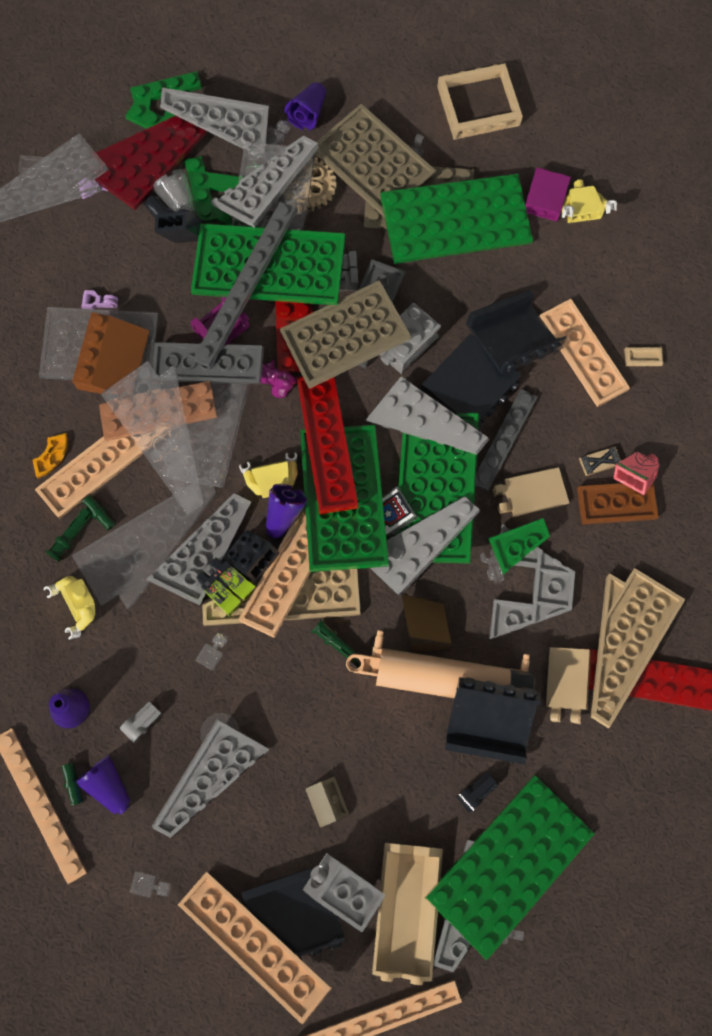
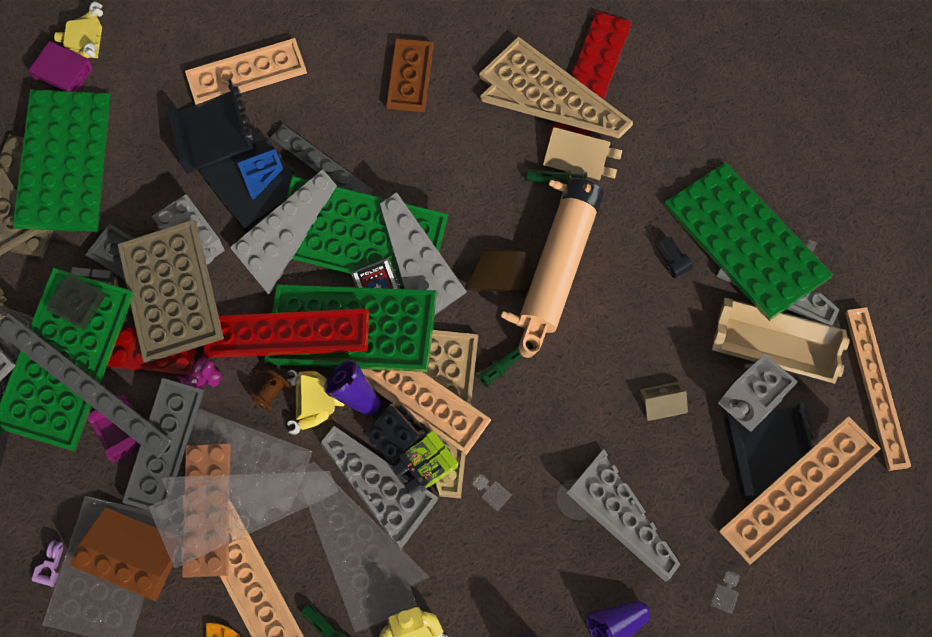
camera: 75 degrees left, 5 degrees down
(99, 512) = (310, 595): dark green pin -> none
(140, 722) = (556, 581): light grey piece -> none
(273, 439) = (268, 391): none -> reddish brown hose
(316, 258) = (76, 302): none -> clear smoke plate
(478, 384) = (260, 171): none -> blue wing
(491, 720) = (608, 227): black panel -> none
(494, 572) = (455, 198): clear plate -> none
(517, 543) = (434, 170): green wing -> none
(532, 492) = (382, 149): tan tile -> none
(538, 663) = (546, 176): none -> dark green pin
(551, 595) = (481, 150): light grey wing -> none
(599, 461) = (364, 82): tile -> none
(637, 471) = (384, 48): coral torso -> none
(643, 356) = (263, 20): tan tile -> none

